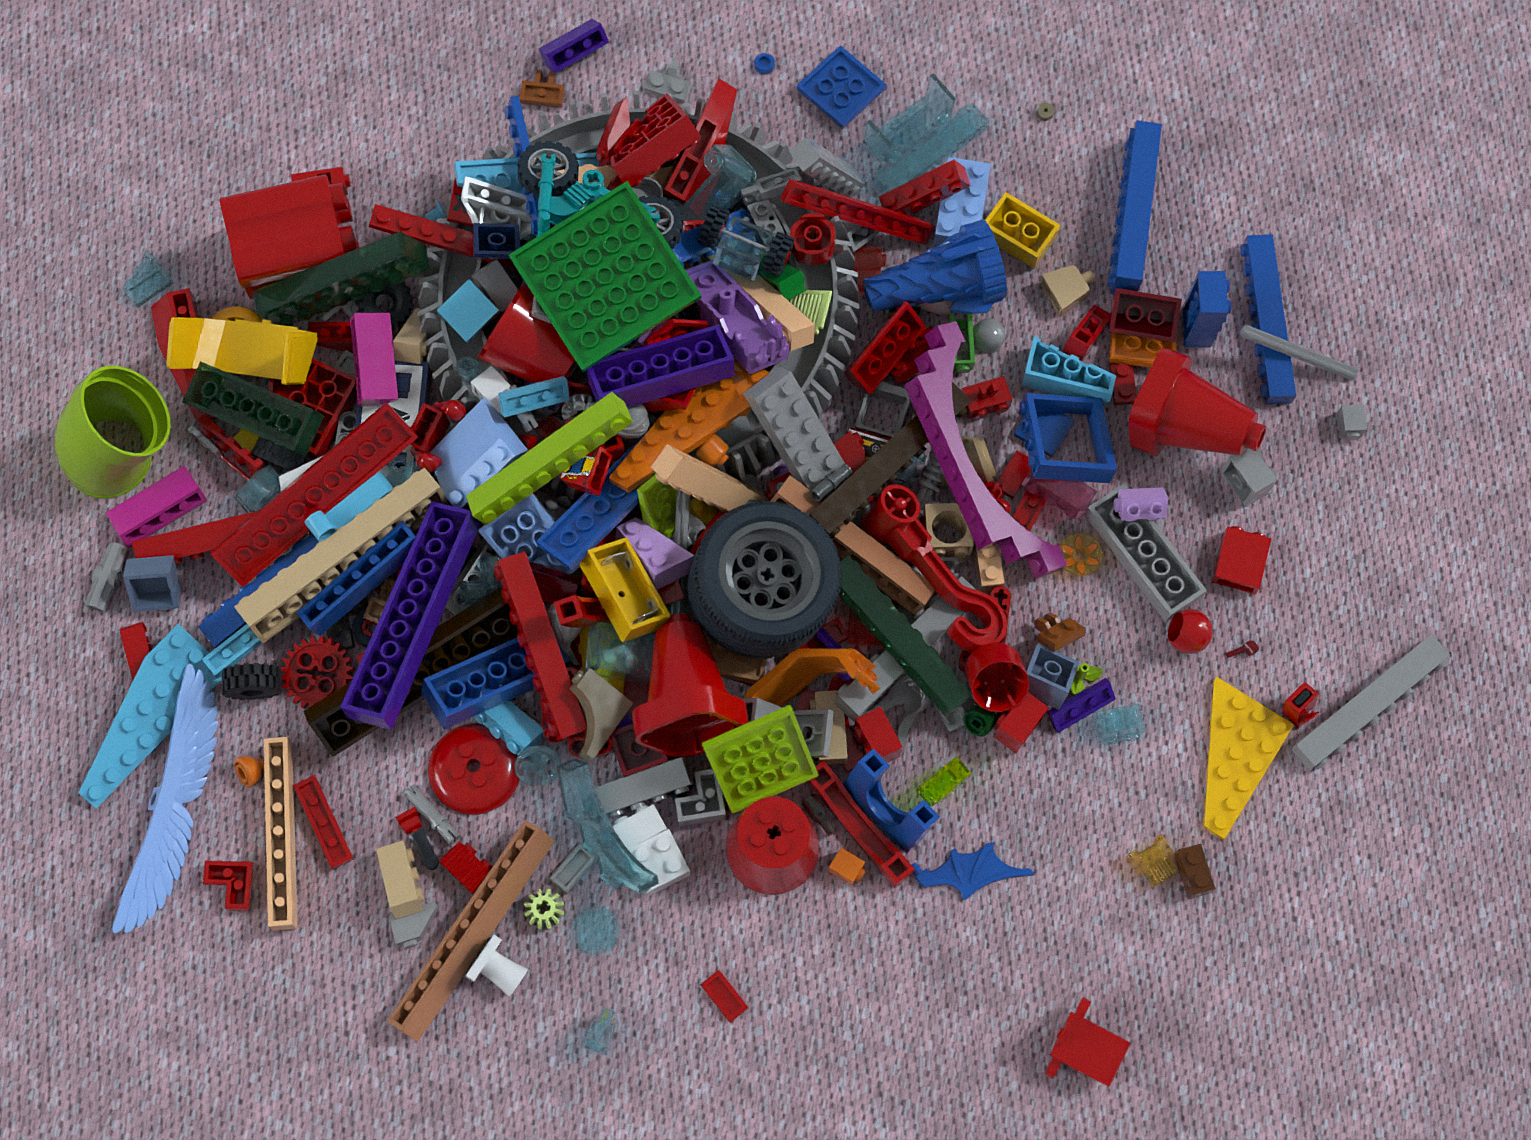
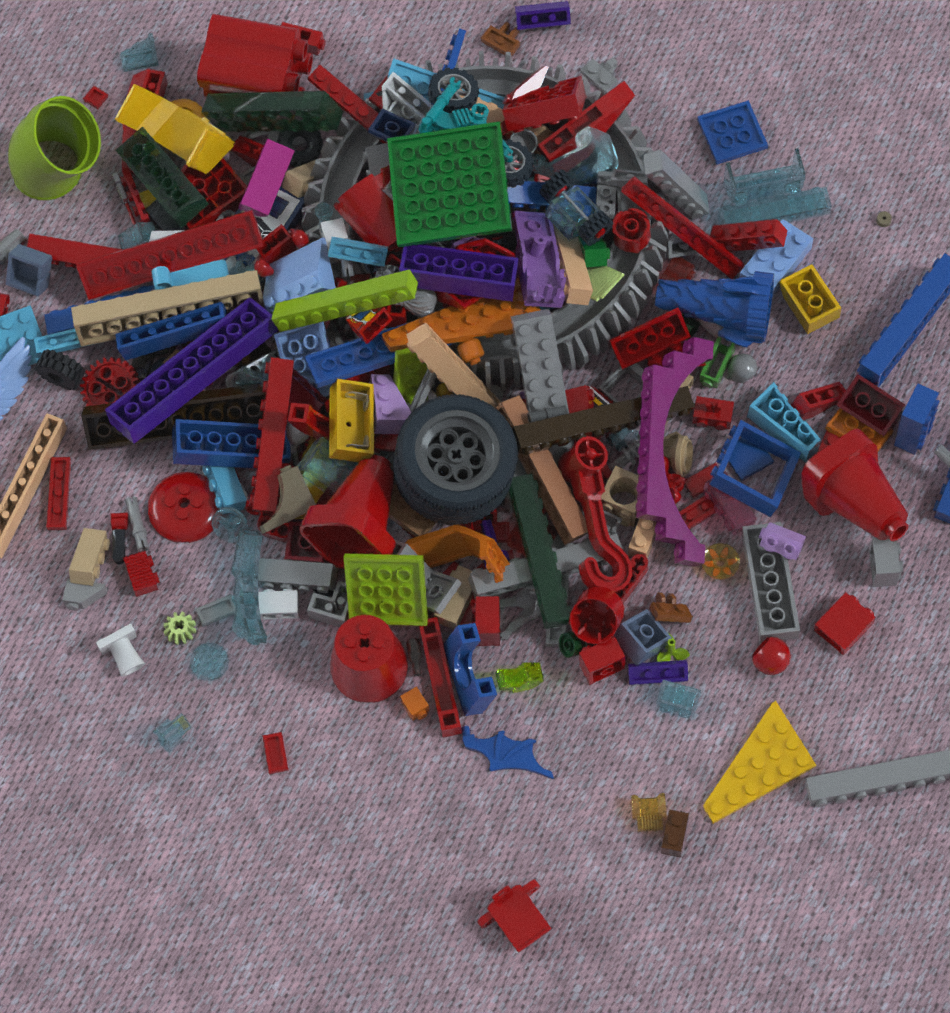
camera: 35 degrees right, 5 degrees down
(120, 351) = (95, 97): none -> red tile
(156, 506) = (62, 218): dark pink brick -> none
(248, 769) = (26, 432): orange brick -> none
(468, 311) = (347, 170): medium azure tile -> none
(471, 931) = (129, 610): nougat brick -> none
(663, 858) = (282, 634): white brick -> none
(764, 63) = (683, 90): blue tile -> none
(1066, 287) = (824, 358): tan torso -> none
(1250, 647) = (814, 691): dark red hand -> none
(1299, 704) = (827, 750): red piece -> none

